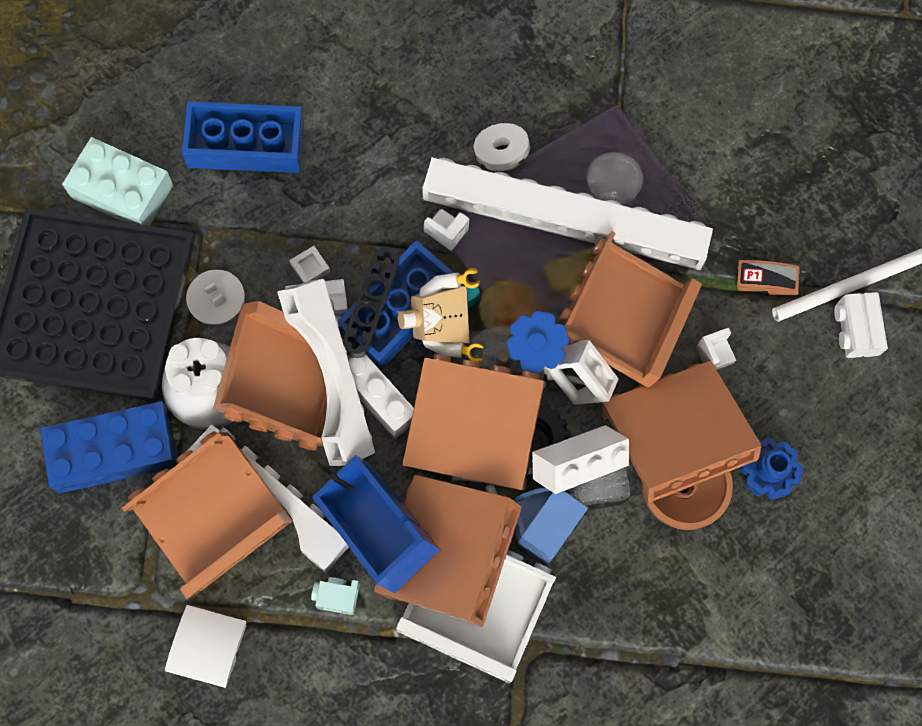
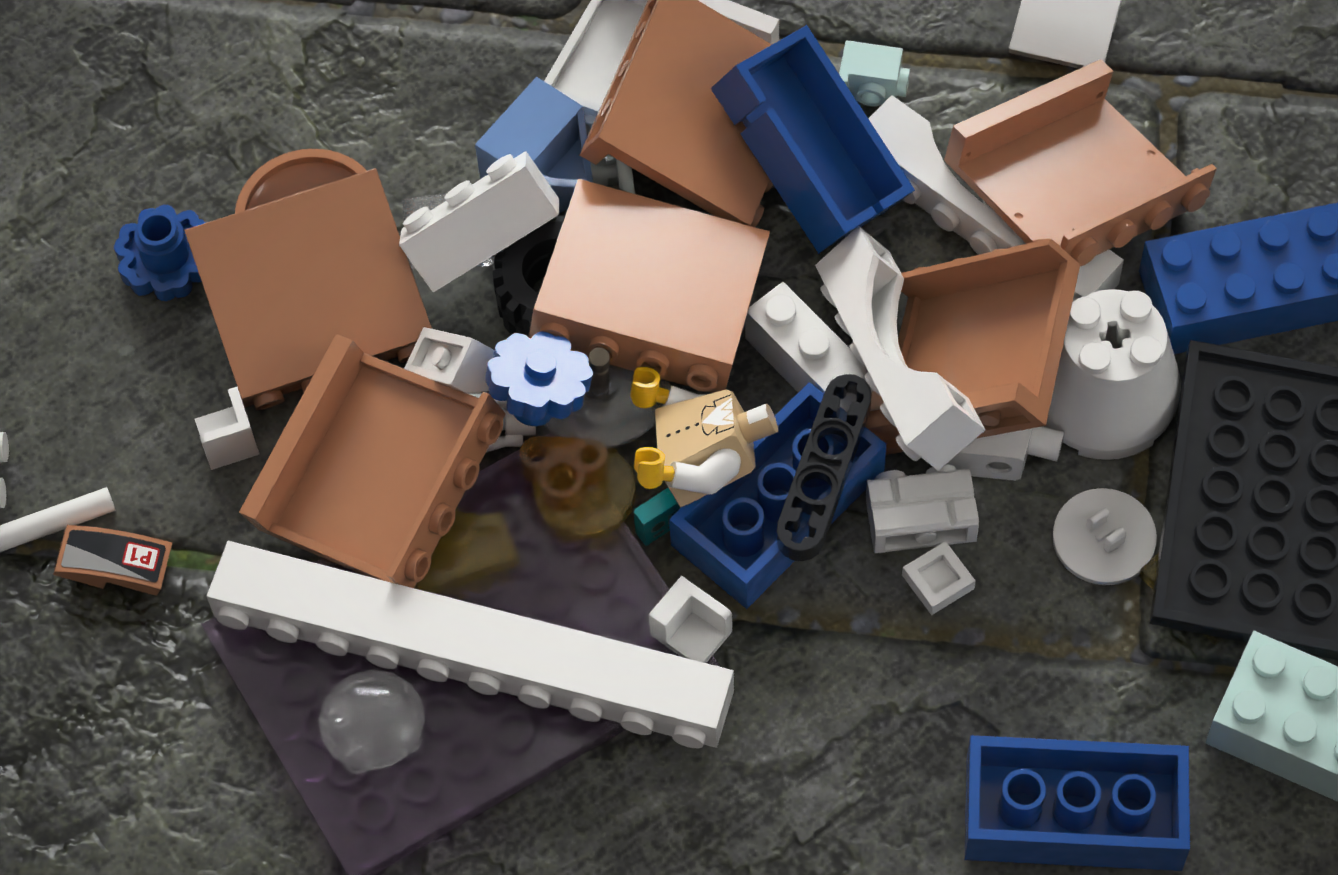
camera: 170 degrees left, 10 degrees down
(498, 135) = (613, 795): white tile -> none

